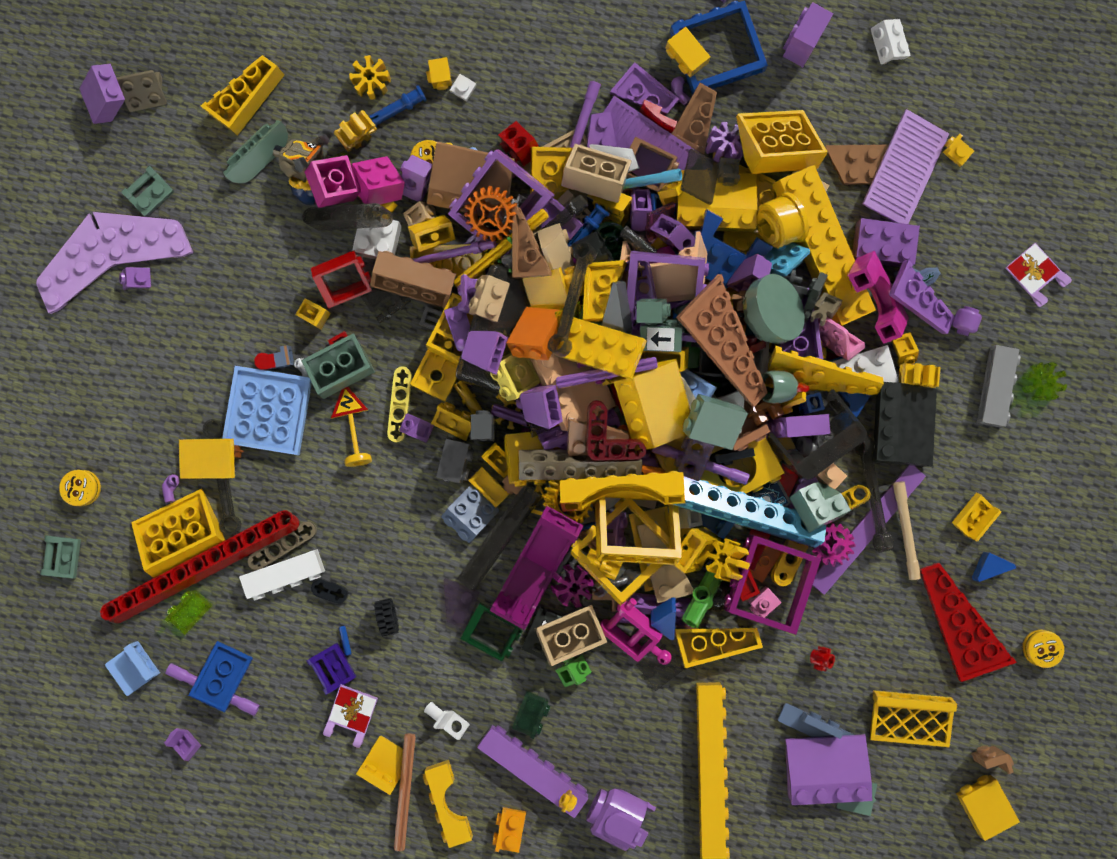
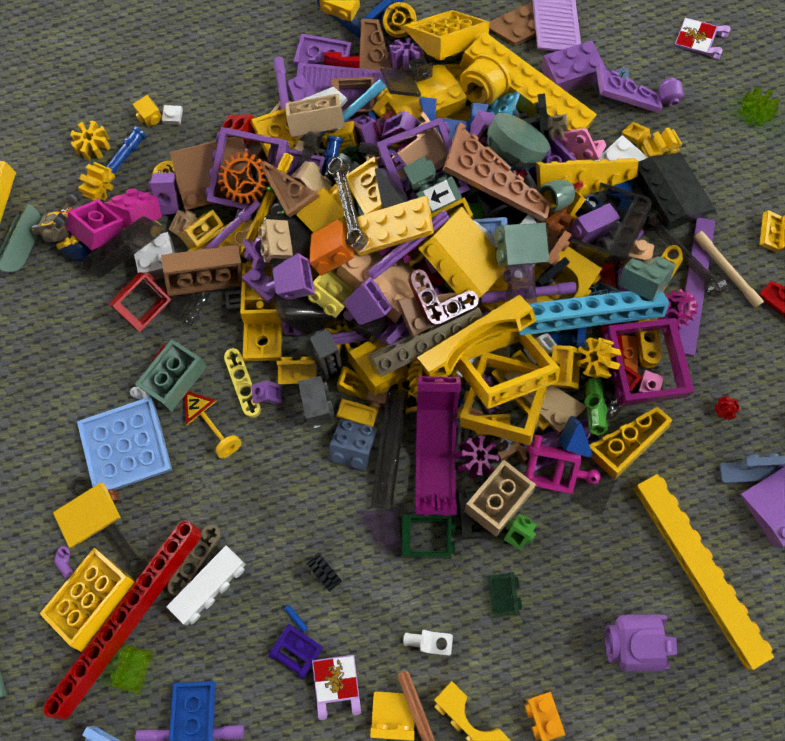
camera: 30 degrees left, 15 degrees down
(275, 360) = (112, 399): leg -> none
(313, 313) = (129, 344): yellow slope -> none
(328, 595) = (260, 584): black beam -> none
(467, 397) = (299, 347): yellow pin -> none
(530, 768) = (535, 646): medium lavender brick -> none
(567, 801) = (584, 653): yellow plate -> none
(677, 90) = (345, 36): medium lavender arm -> none
(739, 98) = (396, 17): none -> yellow cone
(869, 273) = (592, 99): dark pink arch -> none
(998, 386) = (726, 127): light grey brick -> none

